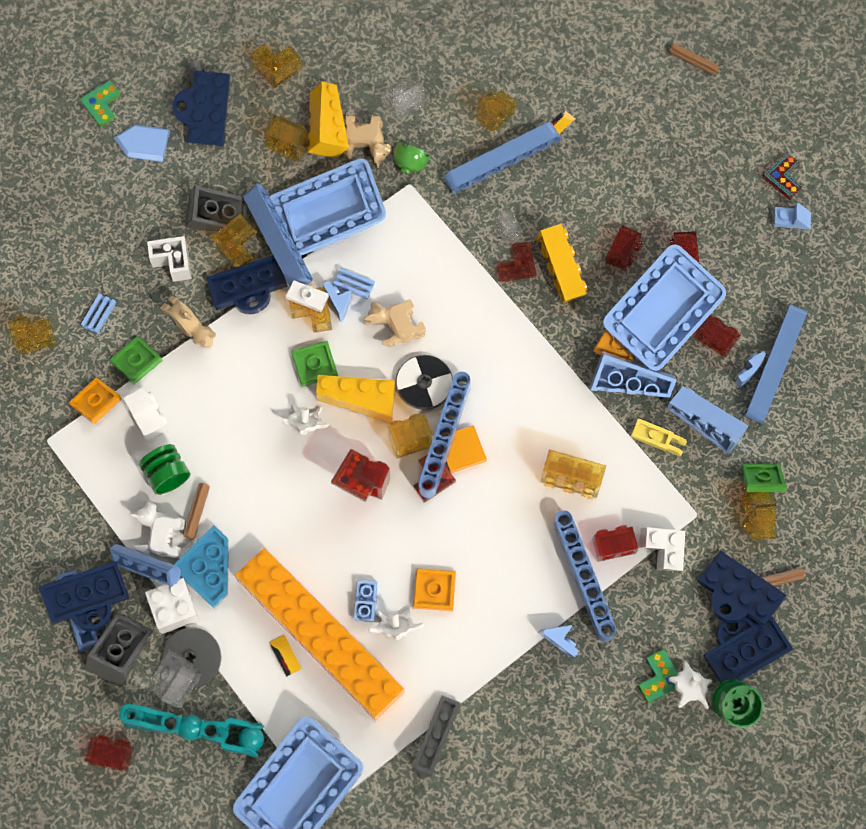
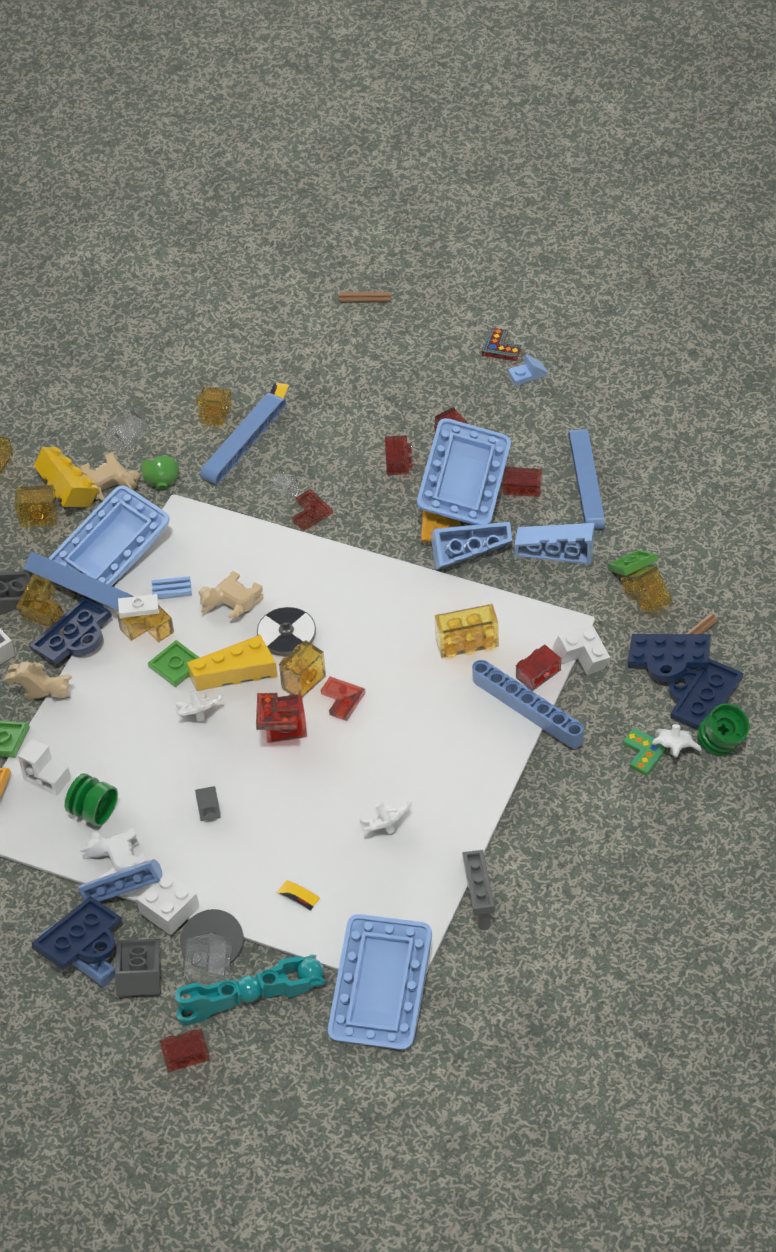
camera: 25 degrees left, 20 degrees down
(196, 510) = (140, 823): medium nougat axle -> none
(206, 566) = (183, 858): dark azure plate -> none
(259, 524) = (207, 803): none -> dark grey brick
(320, 634) = (320, 858): light orange brick -> none
(339, 301) = (168, 604): light blue slope -> none
(365, 601) = (344, 816): light blue slope -> none
(434, 589) = (401, 779): light orange tile -> none
(441, 442) = (332, 657): medium blue beam -> none
(465, 450) = (354, 664): light orange tile -> none
(556, 637) = (534, 761): light blue slope -> none
(562, 263) = (349, 488): yellow wedge -> none
(657, 437) = (522, 578): light yellow hinge -> none
(753, 365) = (567, 492): light blue slope -> none

